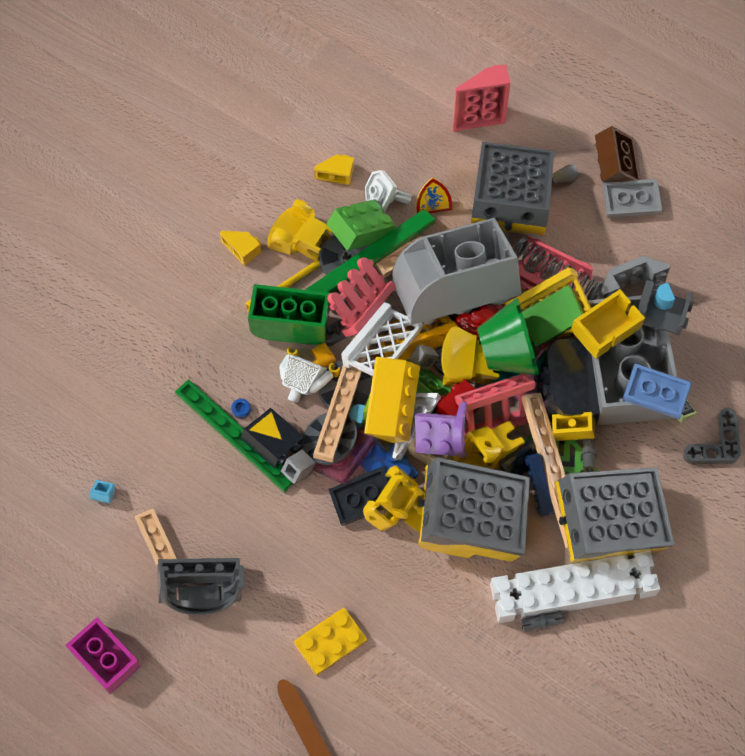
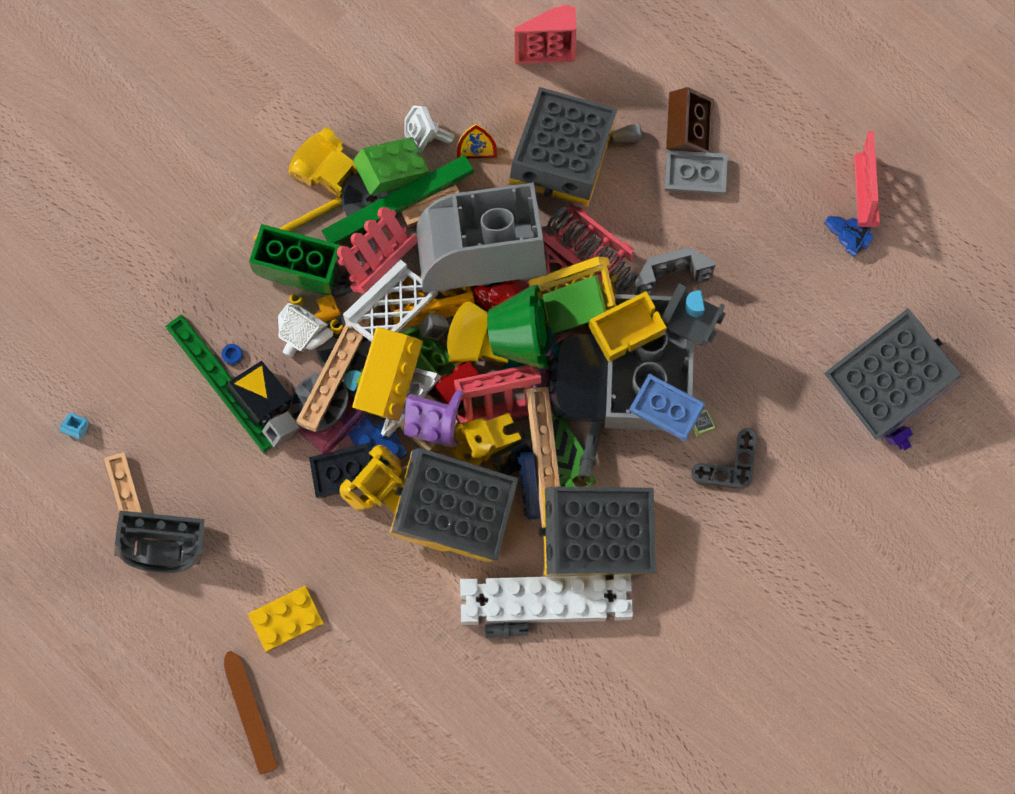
camera: 10 degrees right, 10 degrees up
(103, 655) = (51, 601): dark pink brick -> none
(241, 245) = (260, 169): yellow slope -> none
(335, 169) = (377, 93): yellow slope -> none
(573, 427) = (576, 429): yellow brick -> none

